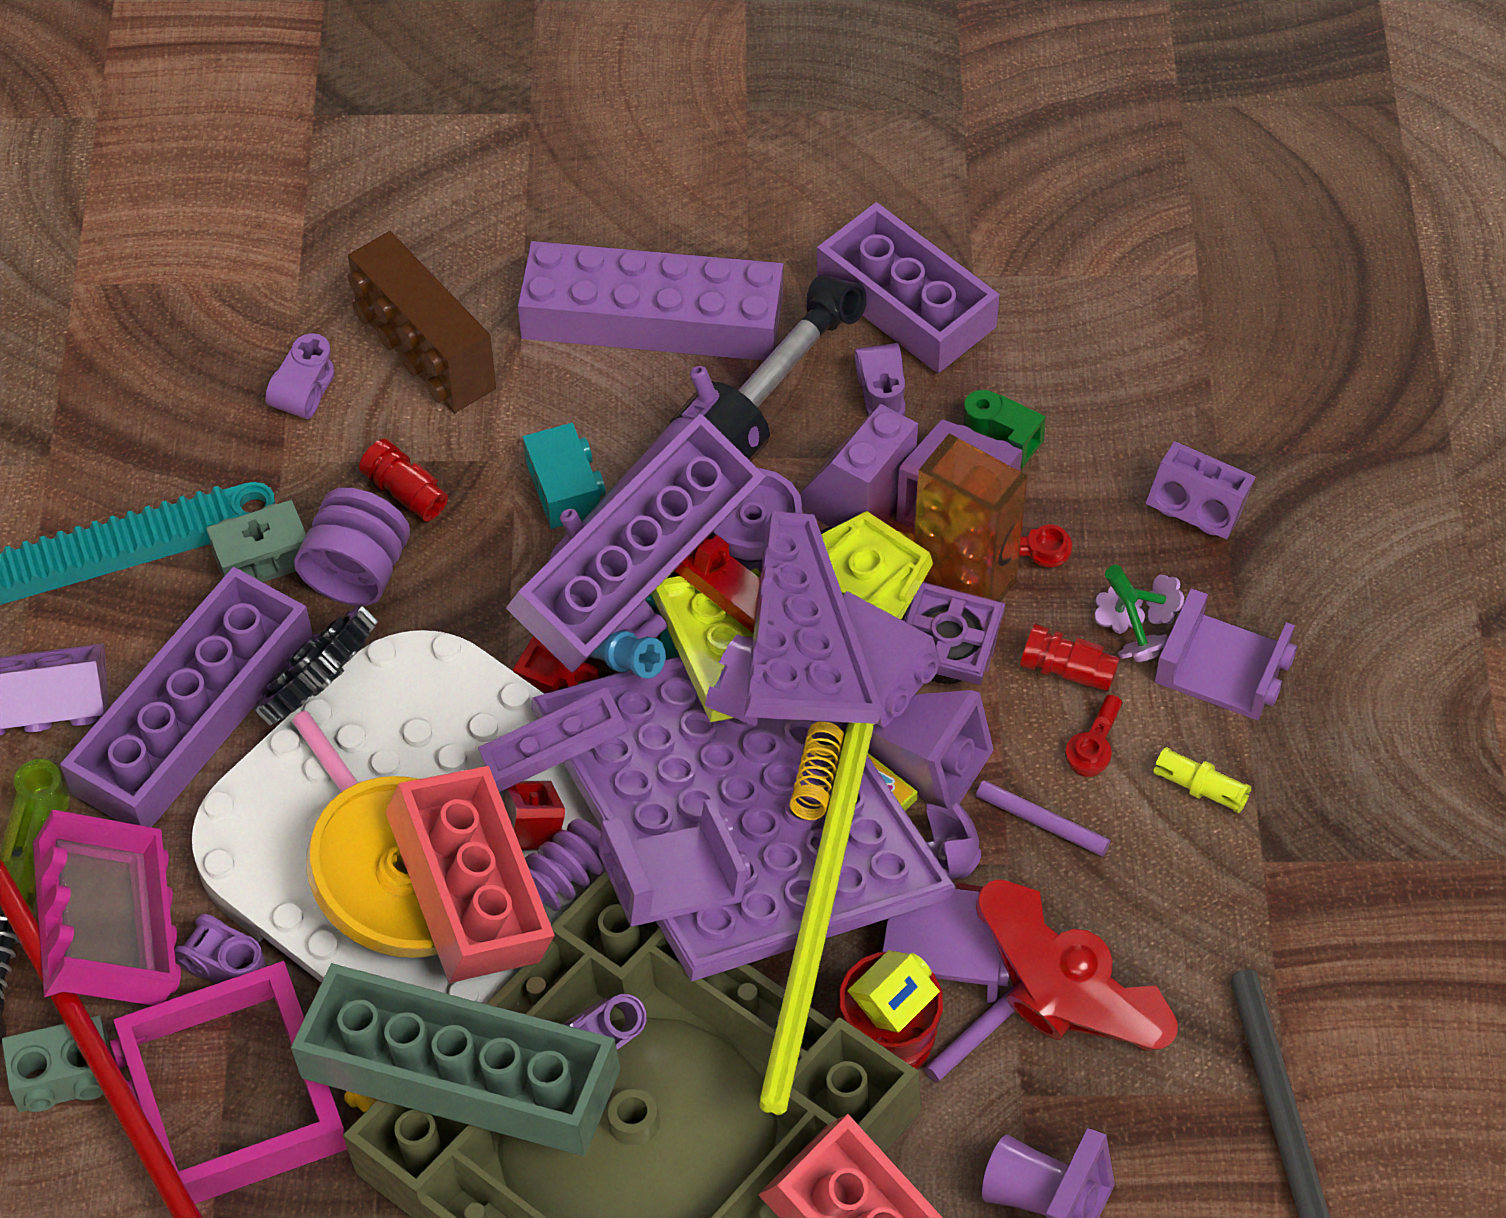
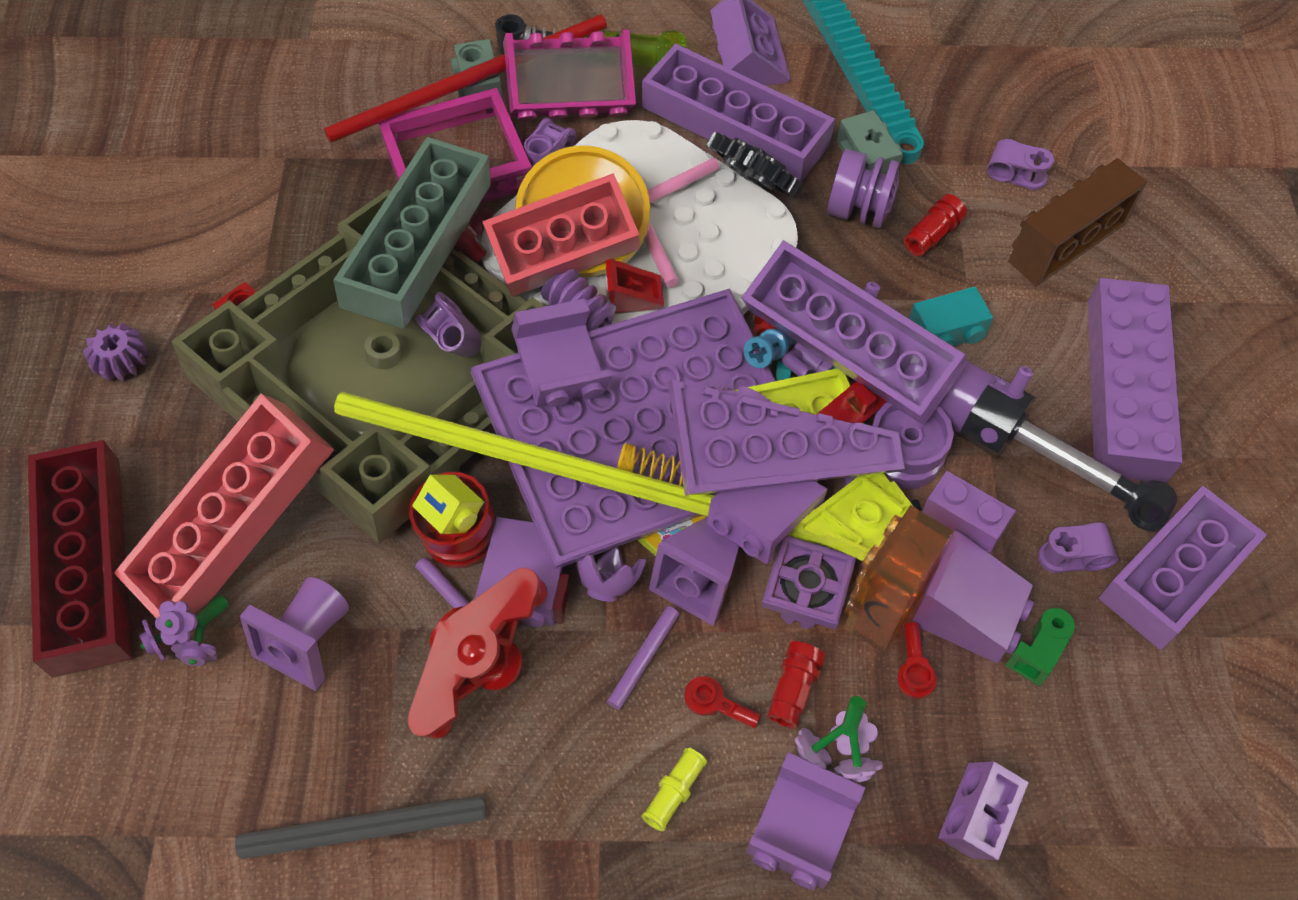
camera: 90 degrees right, 5 degrees up
(553, 739) = (681, 290): medium lavender plate -> none

